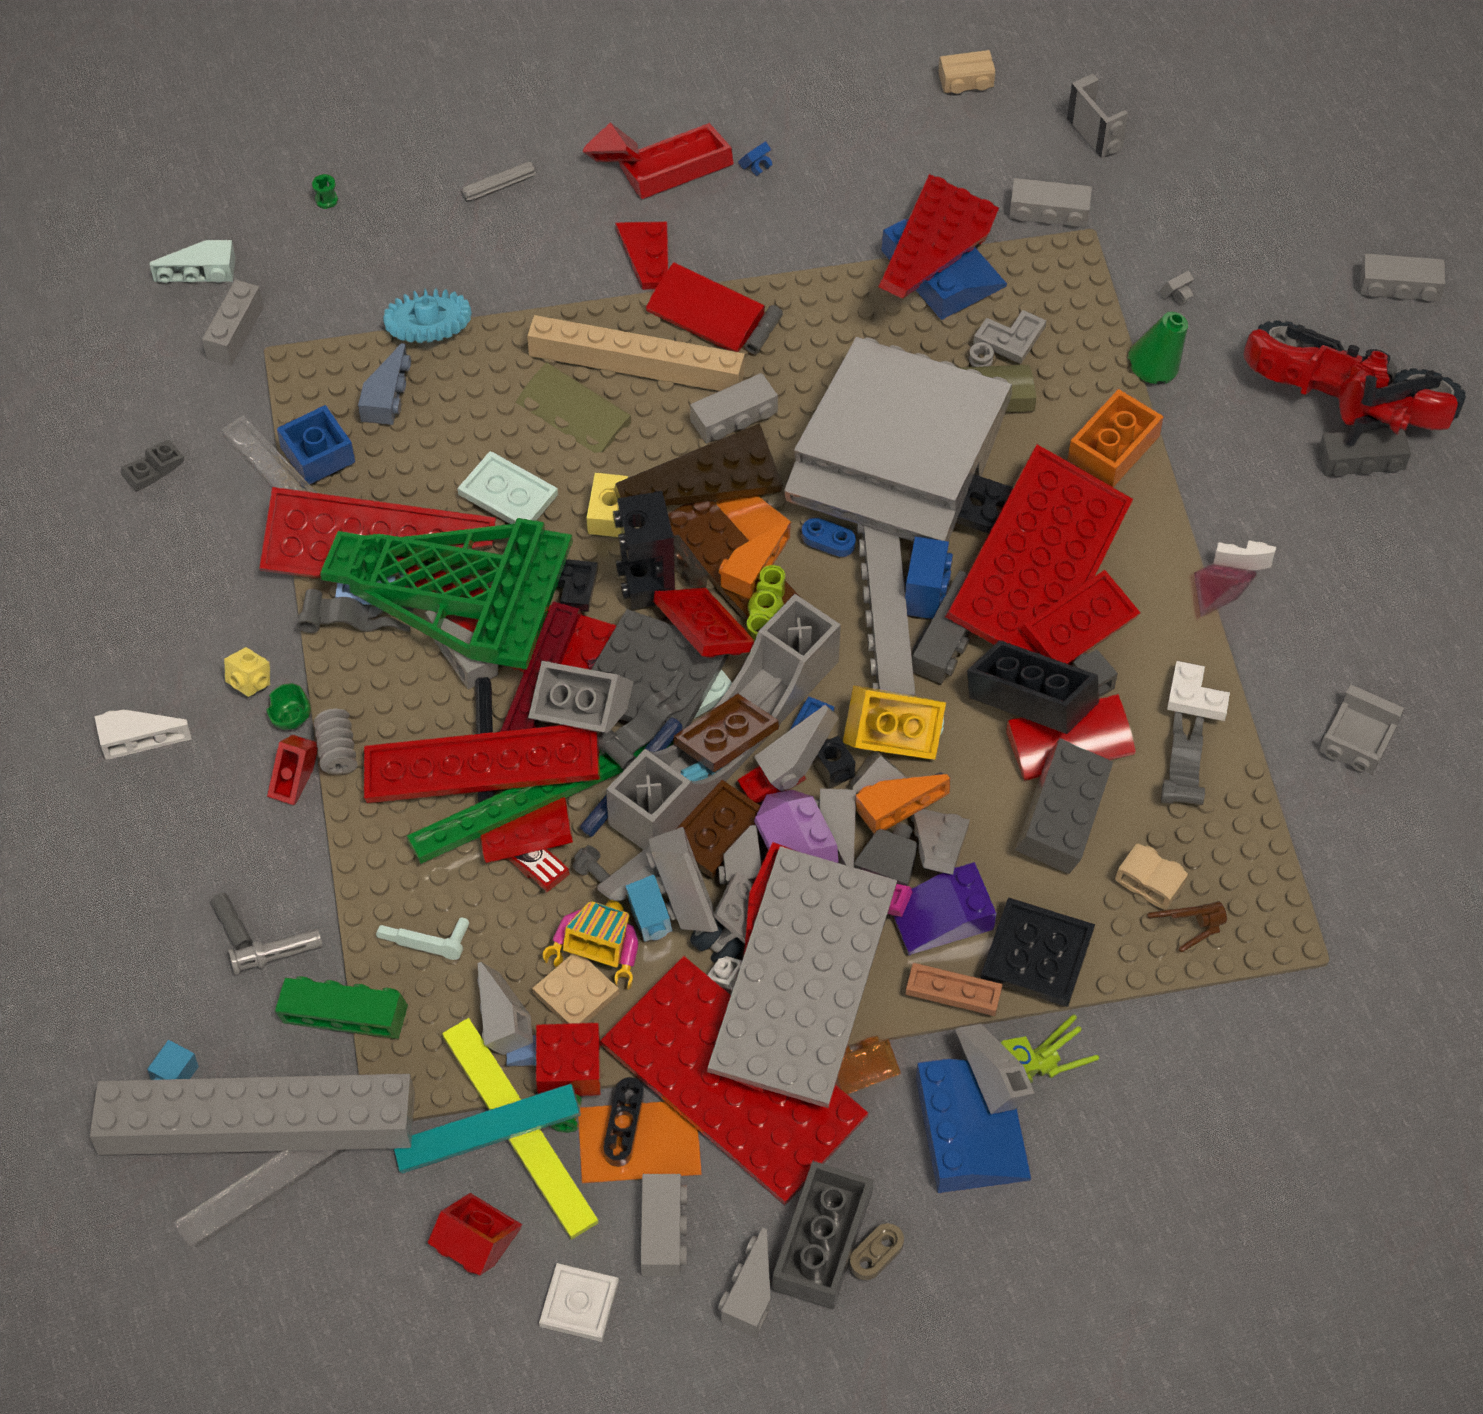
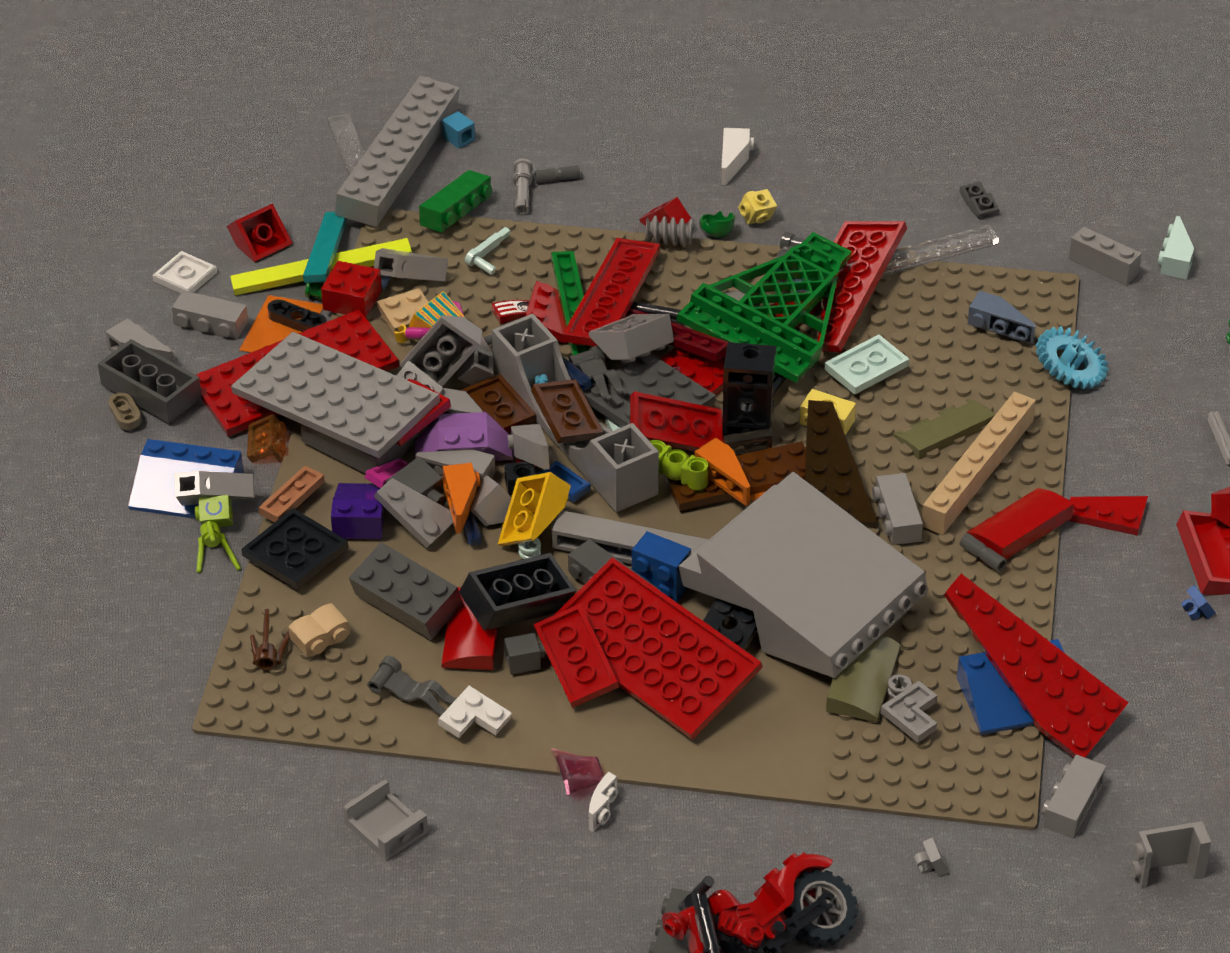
camera: 110 degrees right, 15 degrees down
(316, 444) = (950, 266): blue brick -> none
(1115, 438) = (758, 736): orange brick -> none
(1160, 349) = (851, 809): green cone -> none

